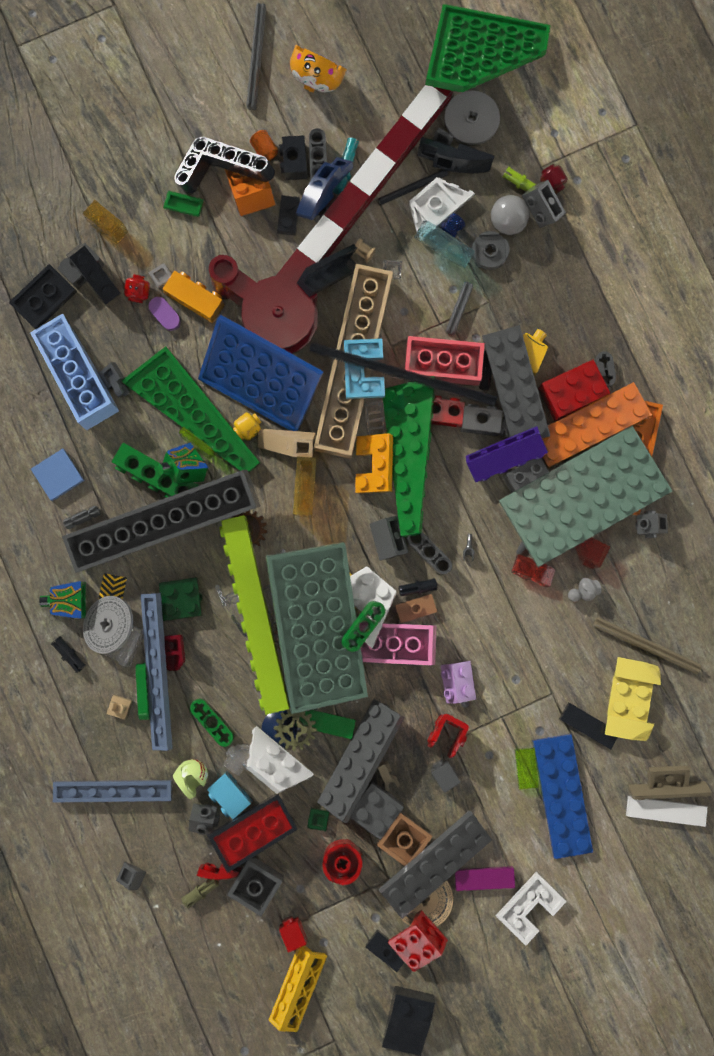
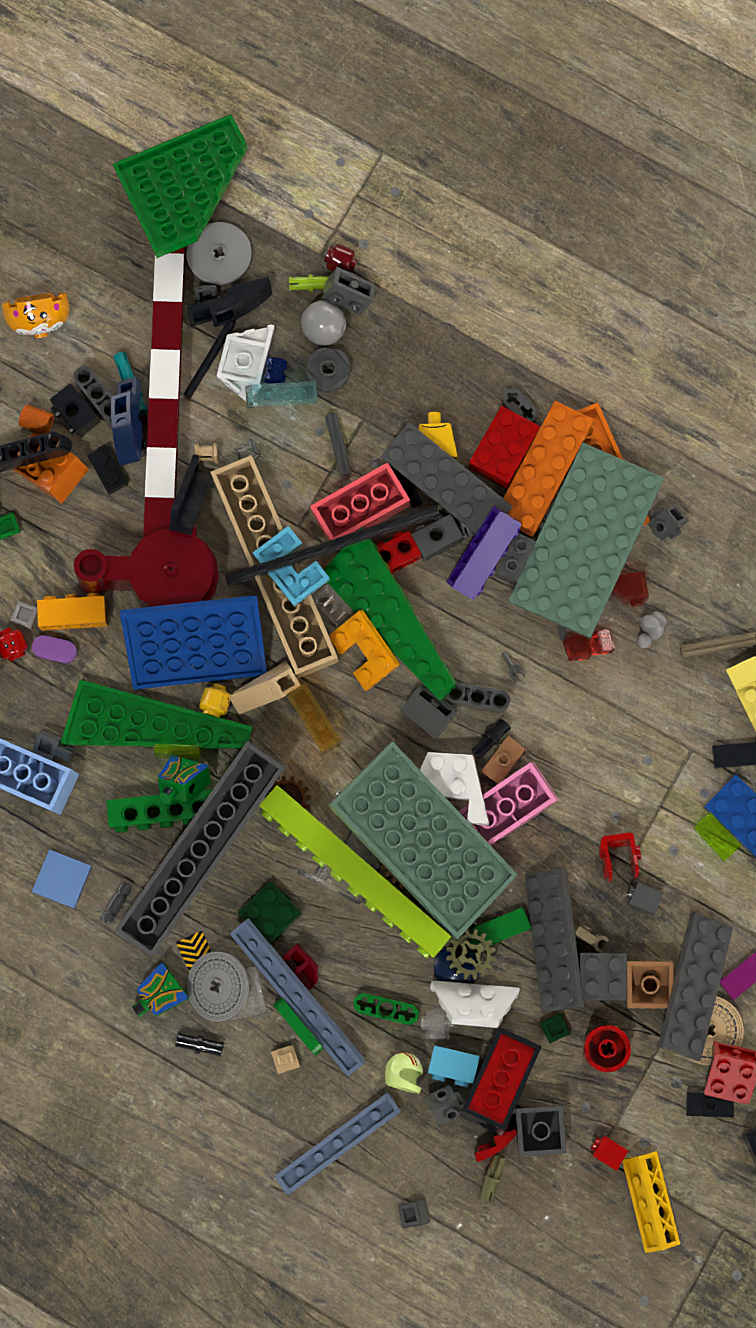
camera: 30 degrees left, 5 degrees down
(371, 626) = (458, 814): green beam -> none
(458, 682) = (593, 801): lavender bracket -> none

